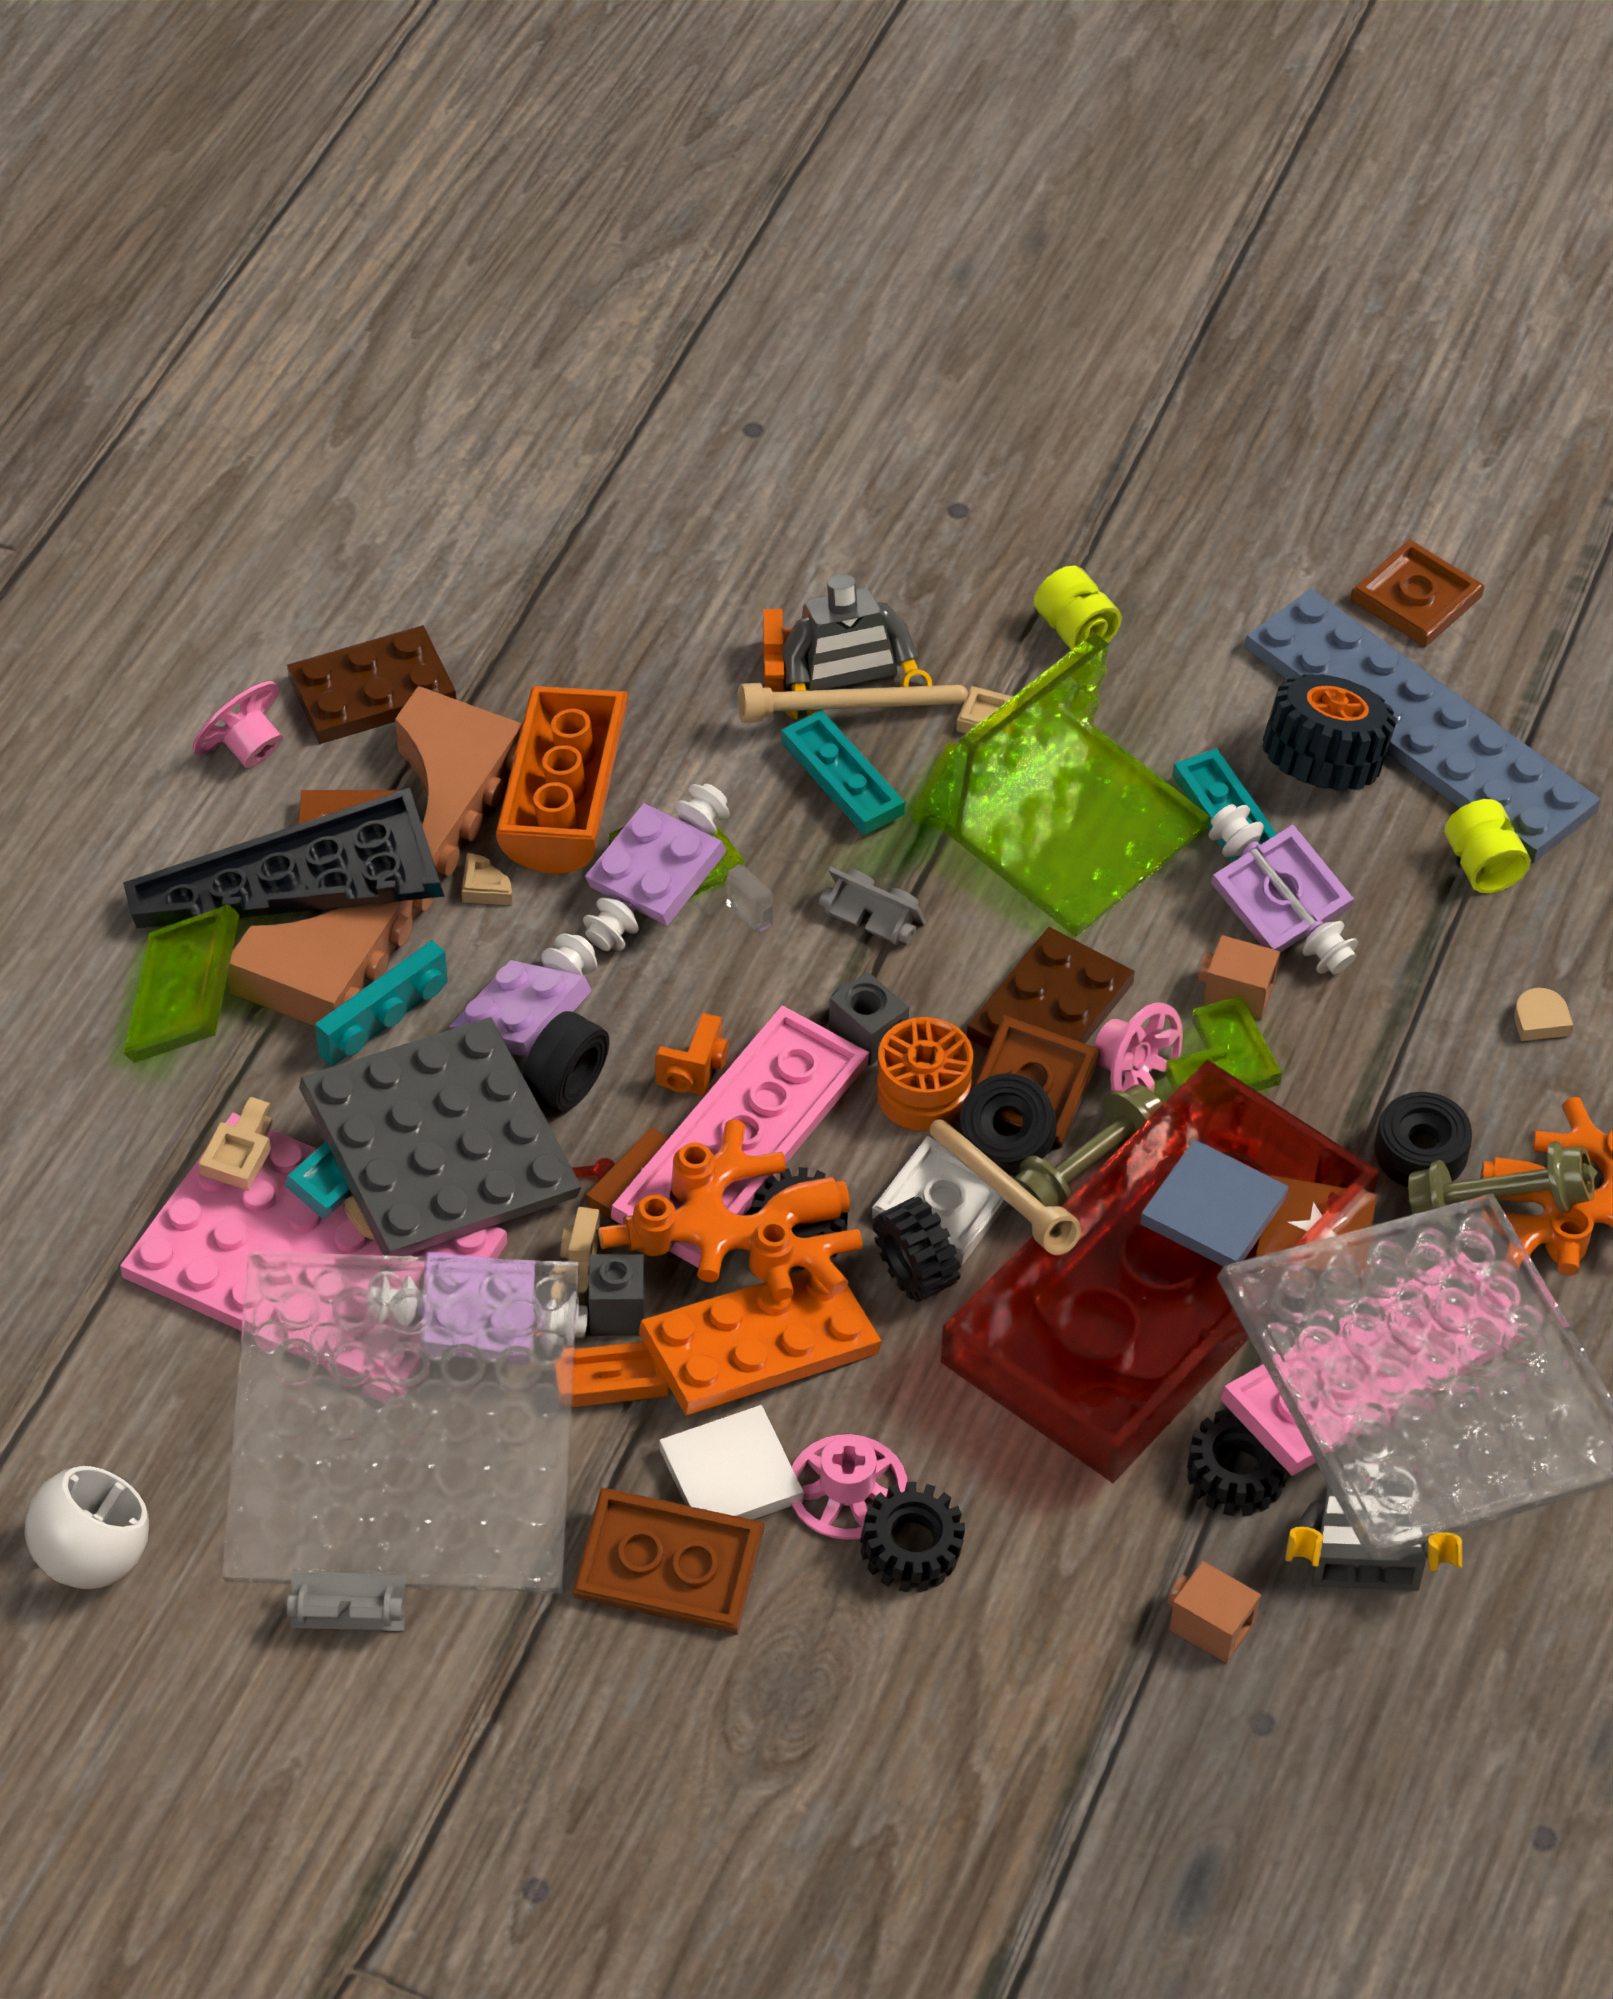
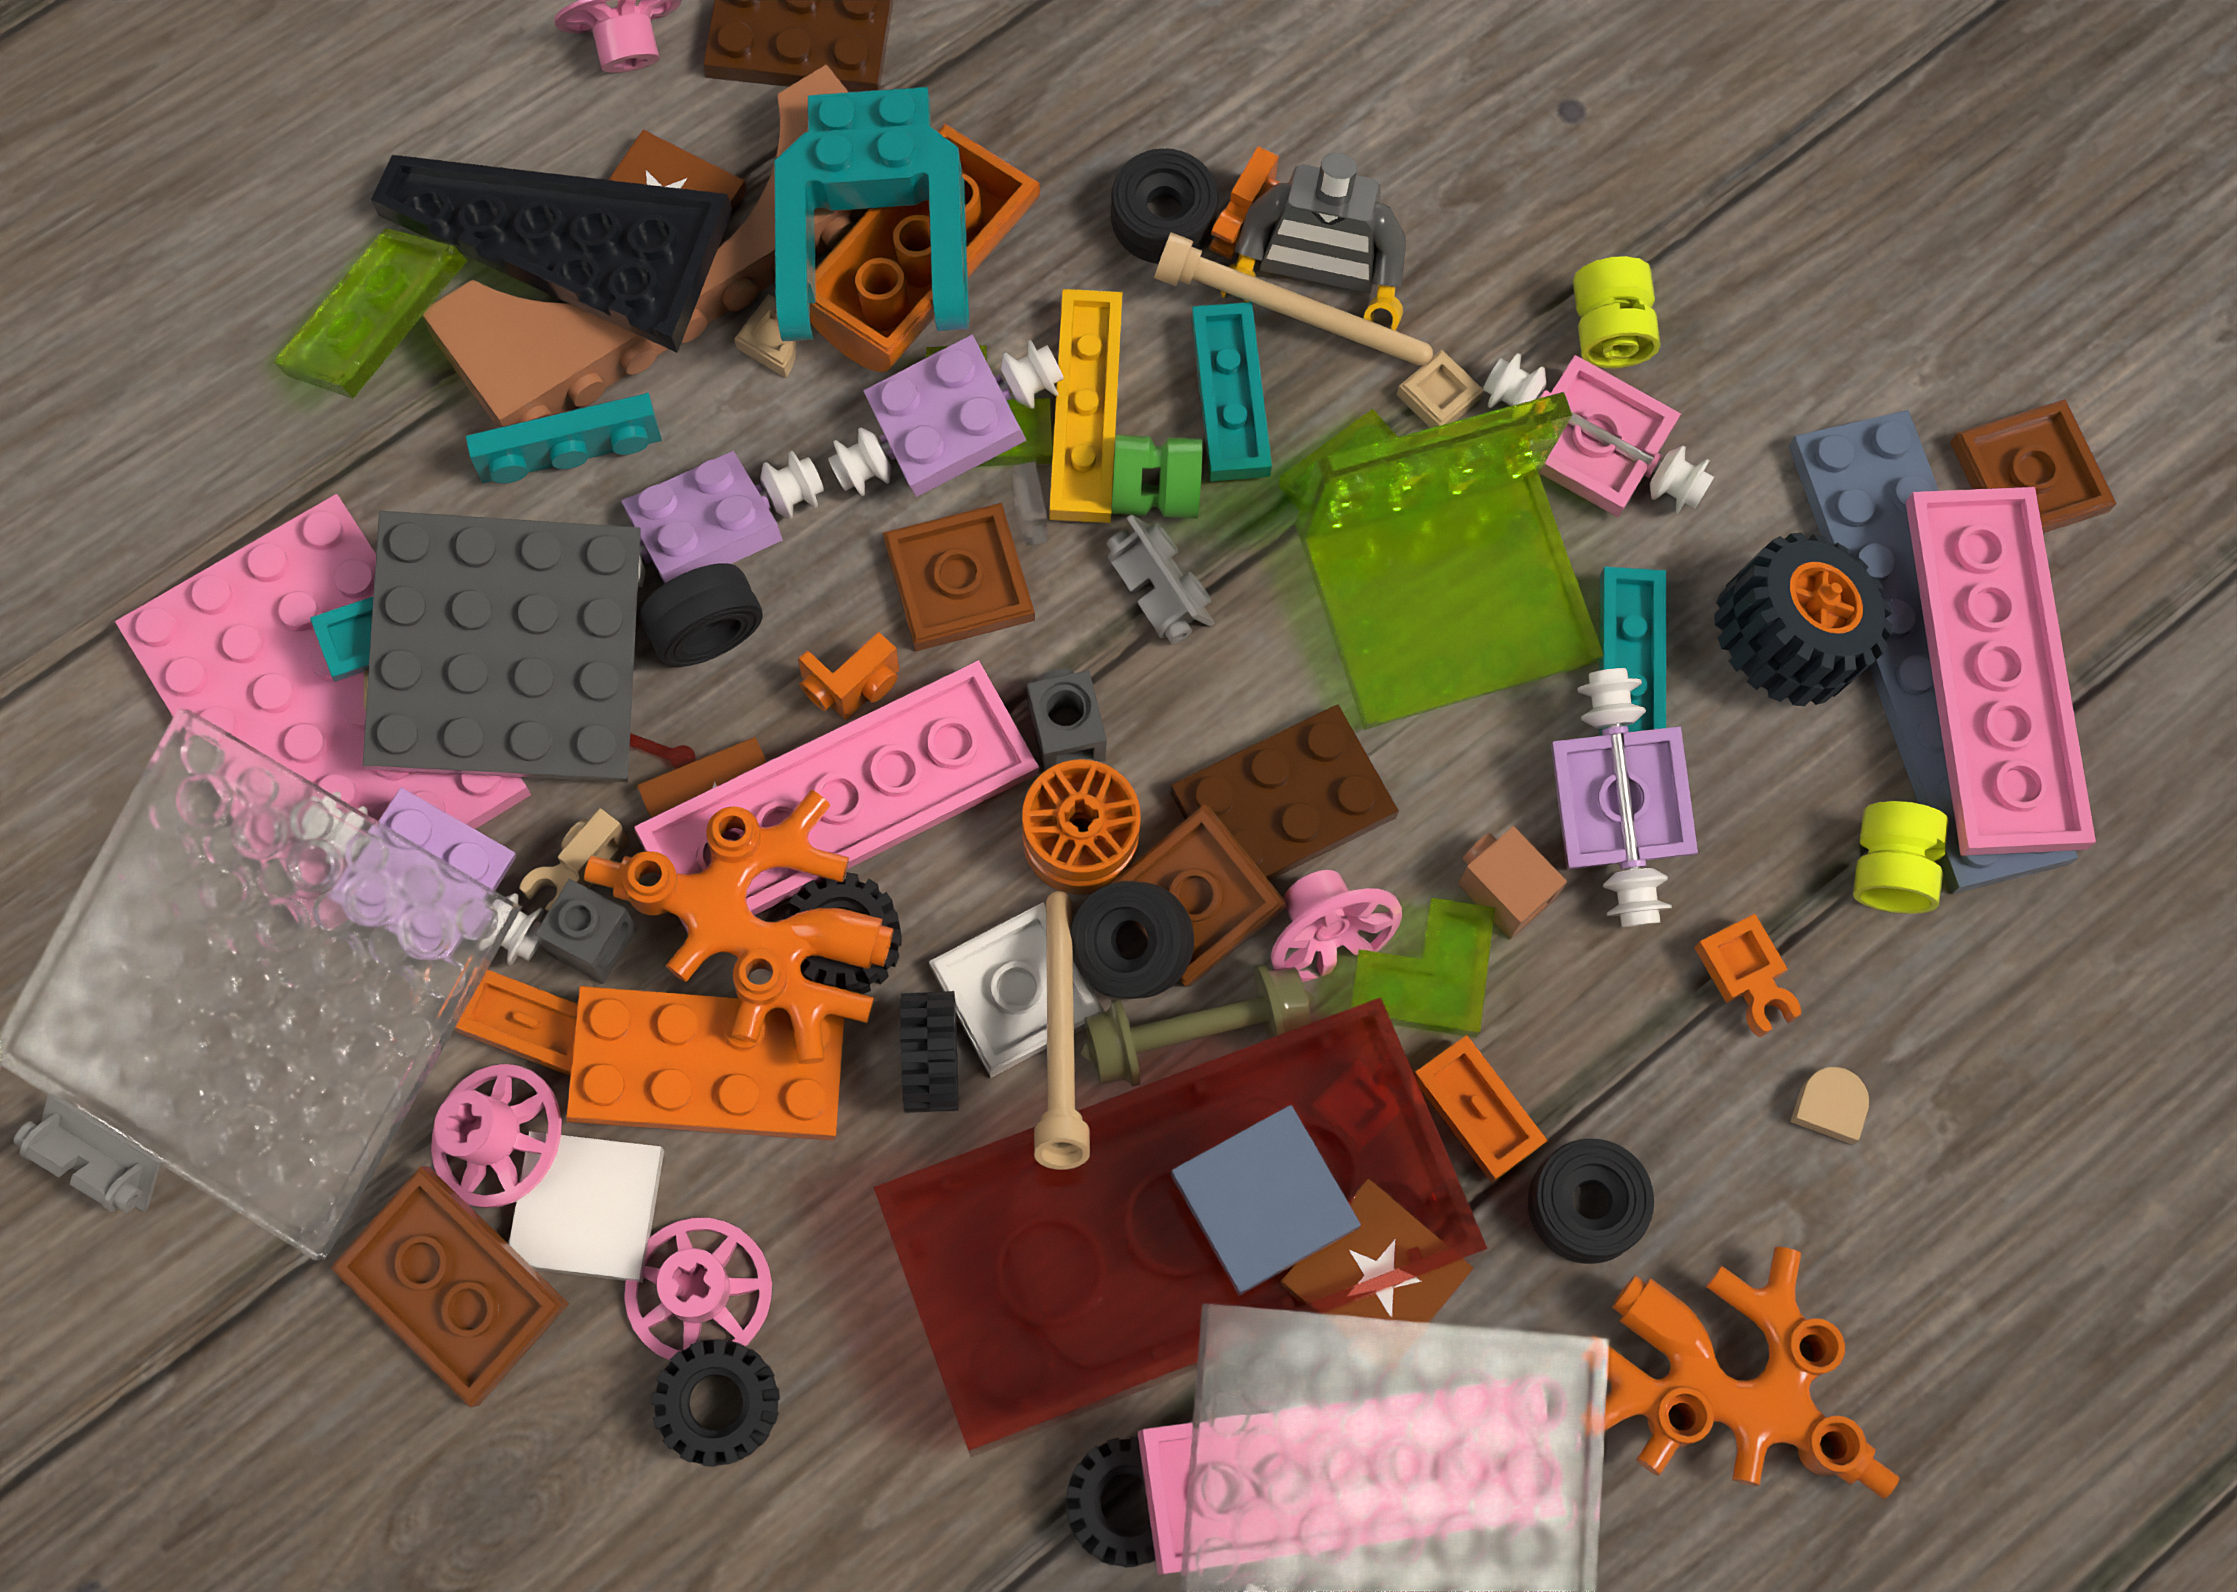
camera: 25 degrees right, 20 degrees up
(239, 1150) = (292, 554): tan plate -> none
(506, 716) = (863, 155): none -> teal plate
(633, 1448) = (488, 1130): none -> bright pink wheel
(713, 658) = (1158, 174): none -> black tyre
(726, 969) = (958, 577): none -> dark orange tile
(750, 823) = (1086, 406): none -> yellow plate
(834, 839) = (1178, 476): none -> bright green wheel
(1135, 692) = (1609, 438): none -> bright pink plate
(1331, 1118) = (1479, 1108): none -> orange plate
(1432, 957) = (1745, 964): none -> orange plate
(1477, 706) = (1999, 672): none -> bright pink plate
(1567, 1176) = (1704, 1371): olive piece -> none

